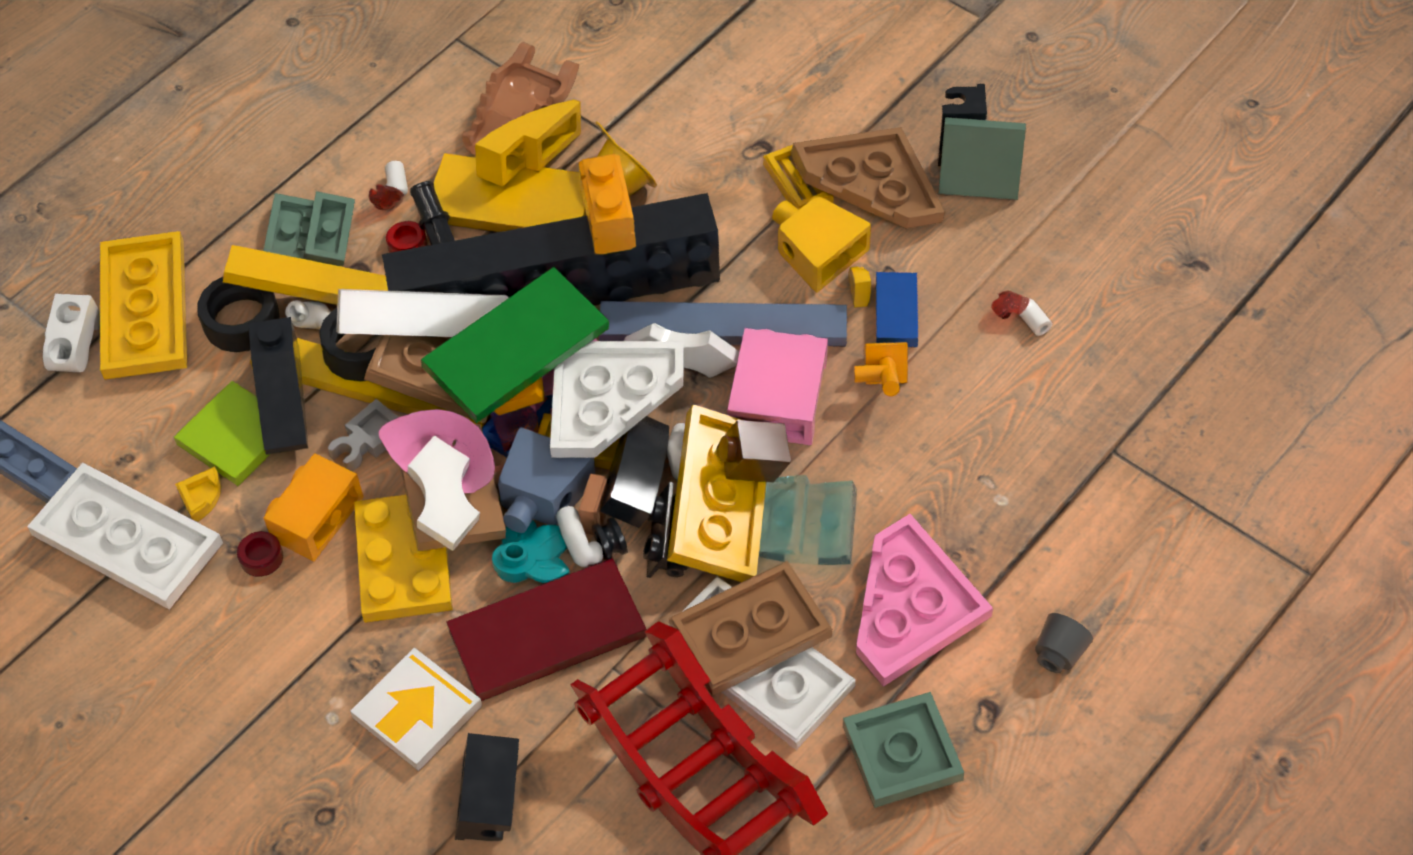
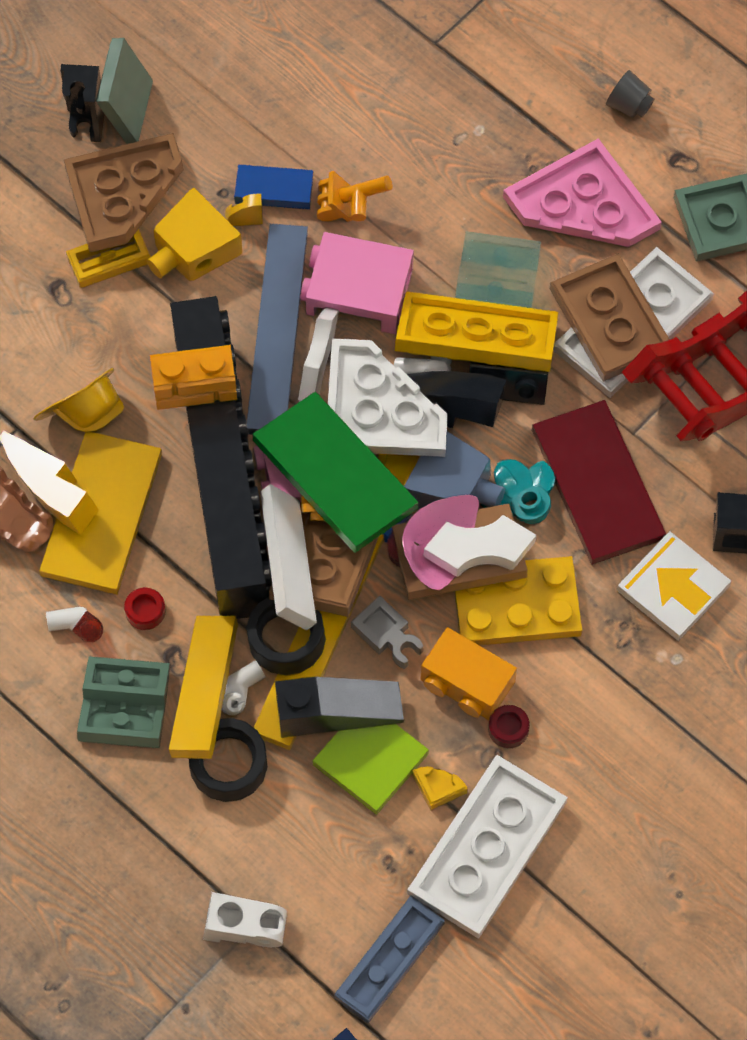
camera: 90 degrees left, 10 degrees up
(142, 305) = (206, 854): yellow plate -> none
(431, 213) = (133, 574): black axle -> none
(576, 540) = (523, 447): white arm -> none
(592, 502) = (479, 435): nougat tile -> none
(610, 538) = (514, 425): black bush -> none
(754, 451) = (446, 293): reddish brown brick -> none
(1024, 307) = (284, 86): arm -> none

